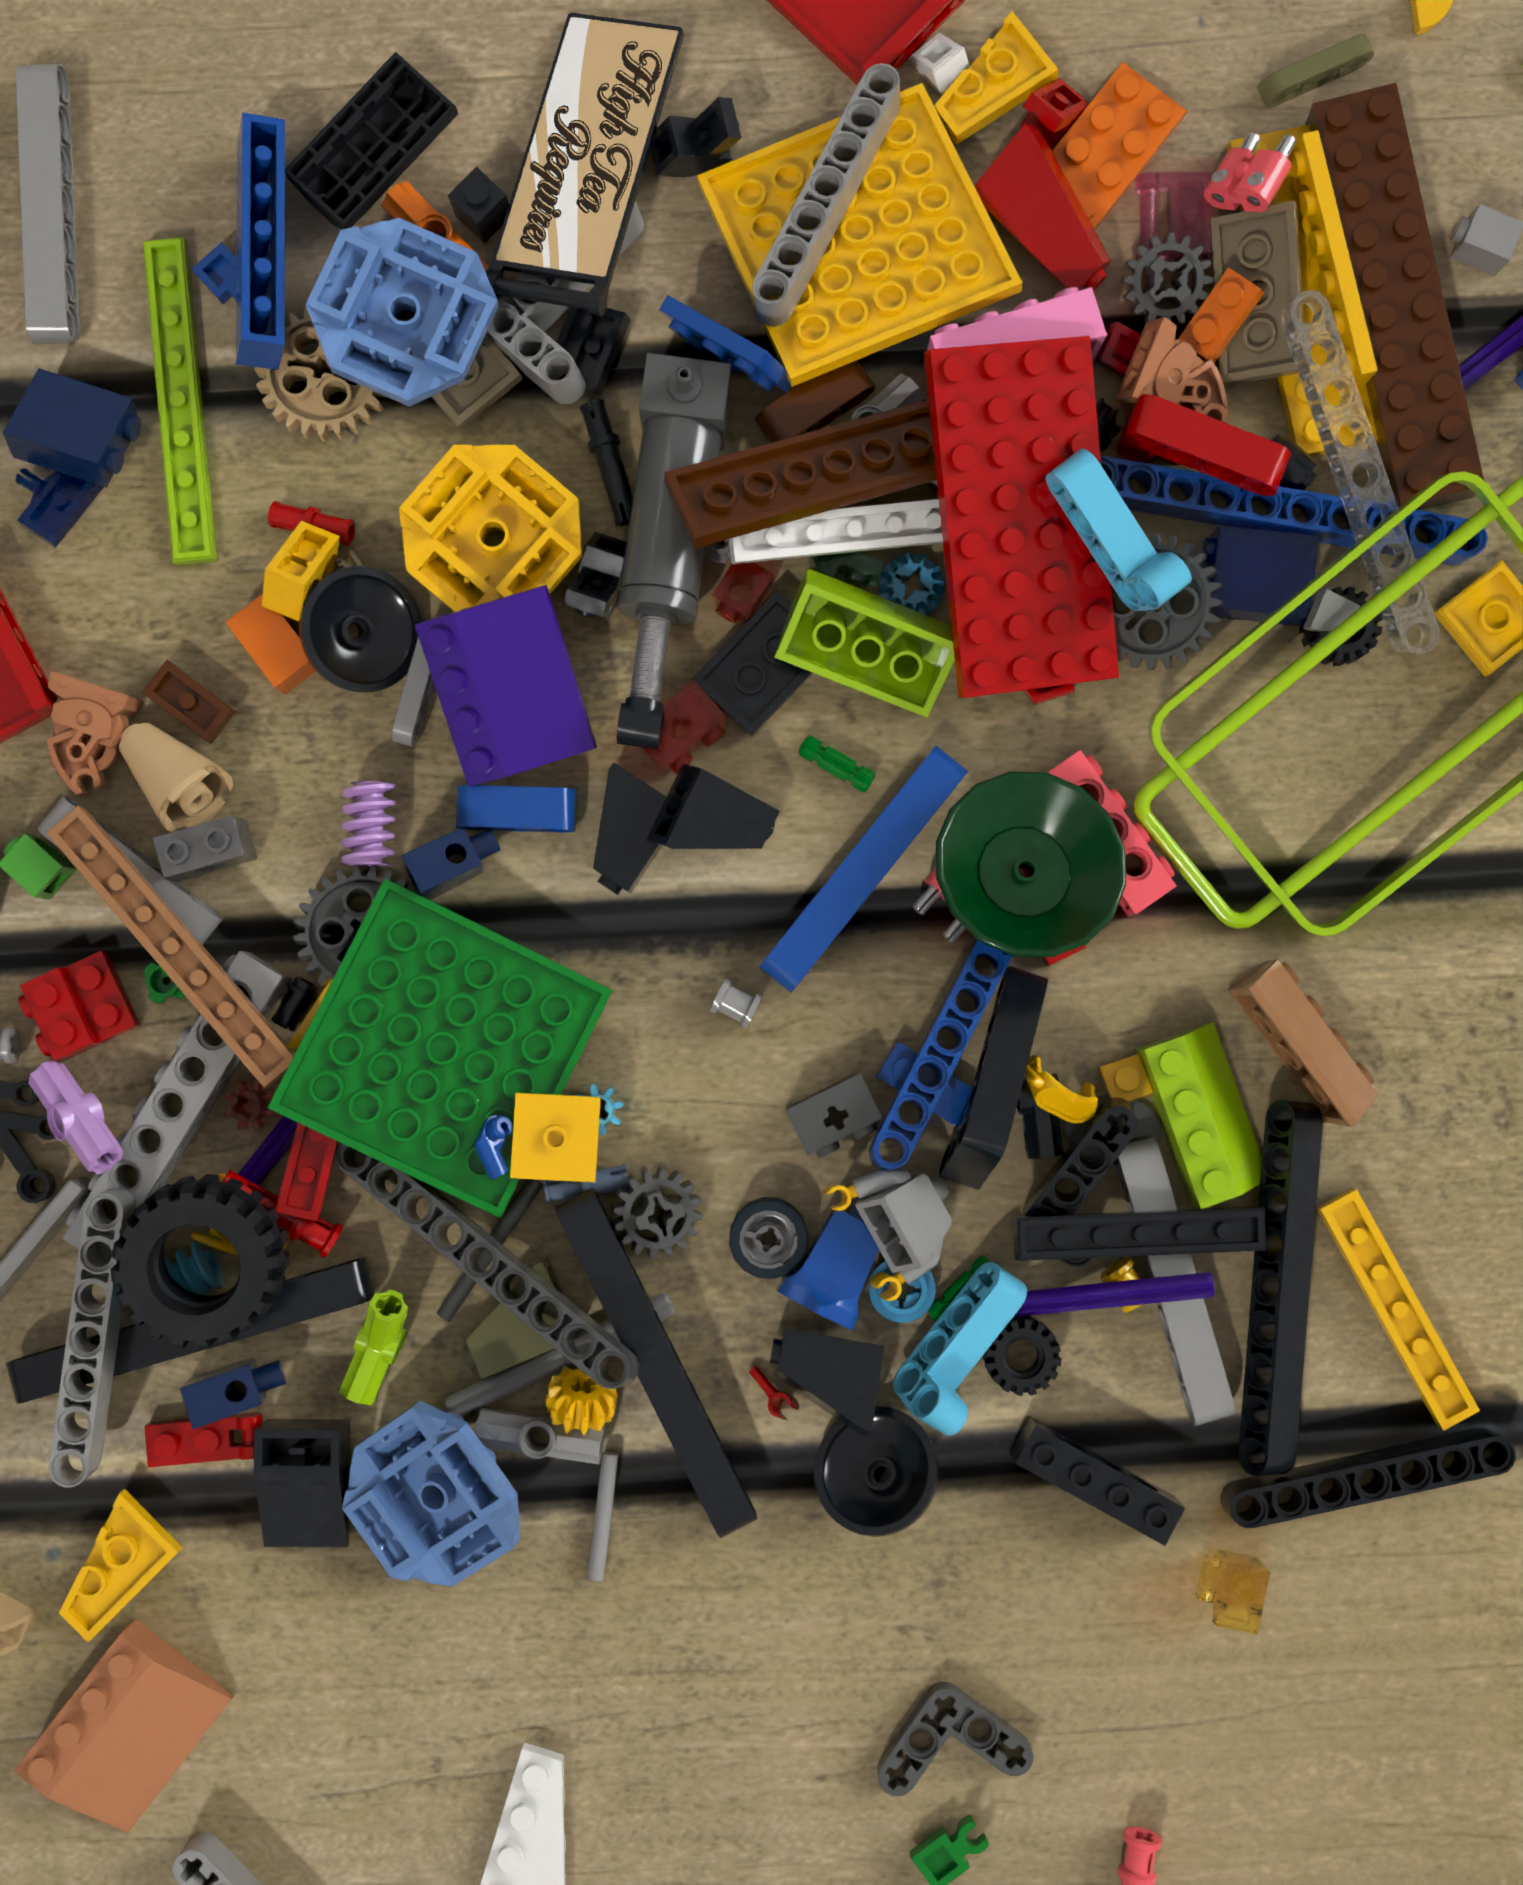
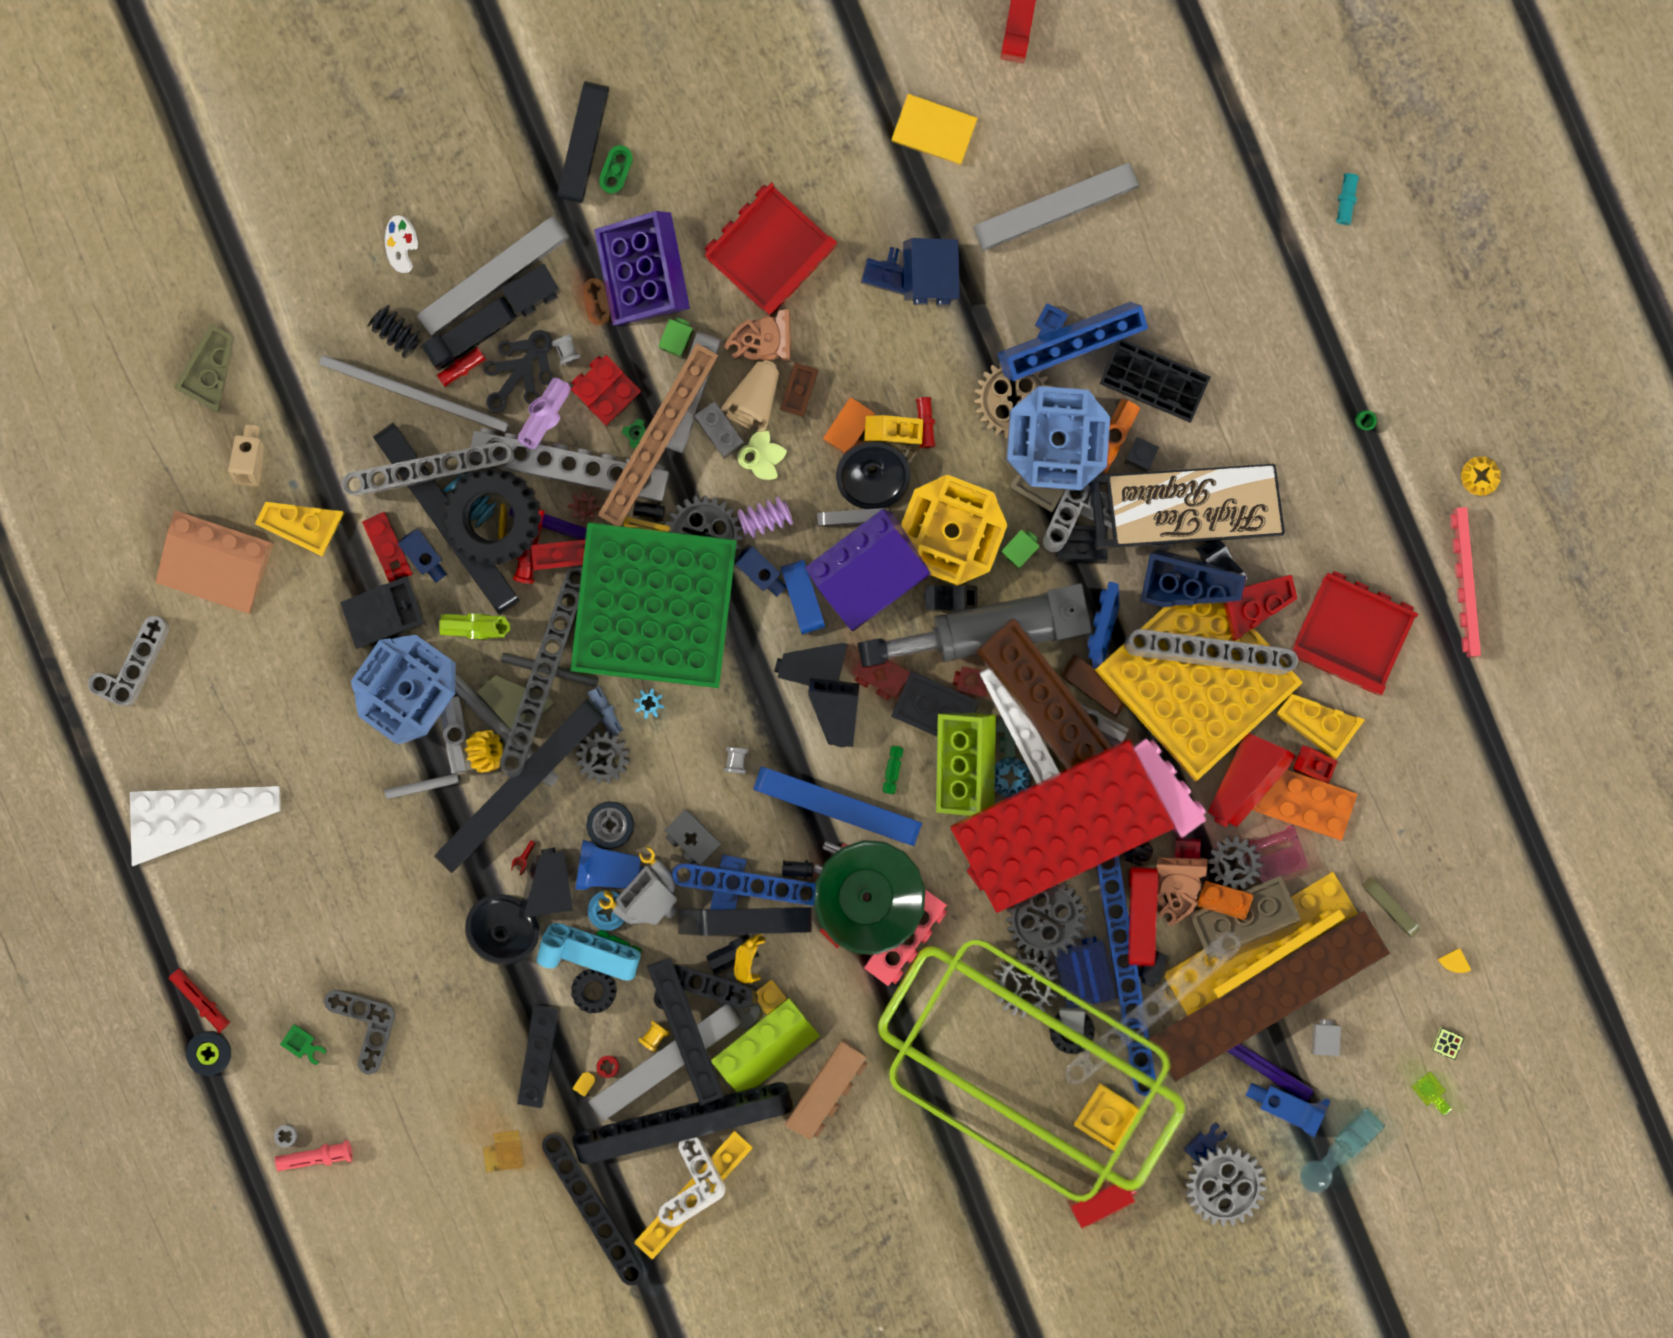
camera: 70 degrees right, 0 degrees up
(179, 401) = (970, 321): lime tile -> none
(274, 791) = (765, 454): none -> yellowish green plate
(489, 1143) = (610, 650): blue arm -> none
(555, 1137) = (625, 685): yellow plate -> none
(561, 443) = (1020, 548): none -> bright green brick
(605, 447) = (1021, 579): black pin -> none
(702, 200) = (1186, 581): none -> dark blue wedge
(773, 108) = (1259, 603): none -> red wing
(940, 62) = (1321, 688): white slope -> none
(940, 965) = (799, 869): none -> black pin
(1114, 536) = (1068, 879): medium azure beam -> none
(1118, 1294) = (646, 1029): dark purple axle -> none
(1156, 1383) = (603, 1073): none -> red bush
(1162, 1419) = (584, 1083): none -> yellow piece
(1250, 178) = (1307, 889): coral piece -> none
(1272, 654) = (1042, 997): none -> light grey gear
(1400, 1297) = (700, 1189): none -> white beam

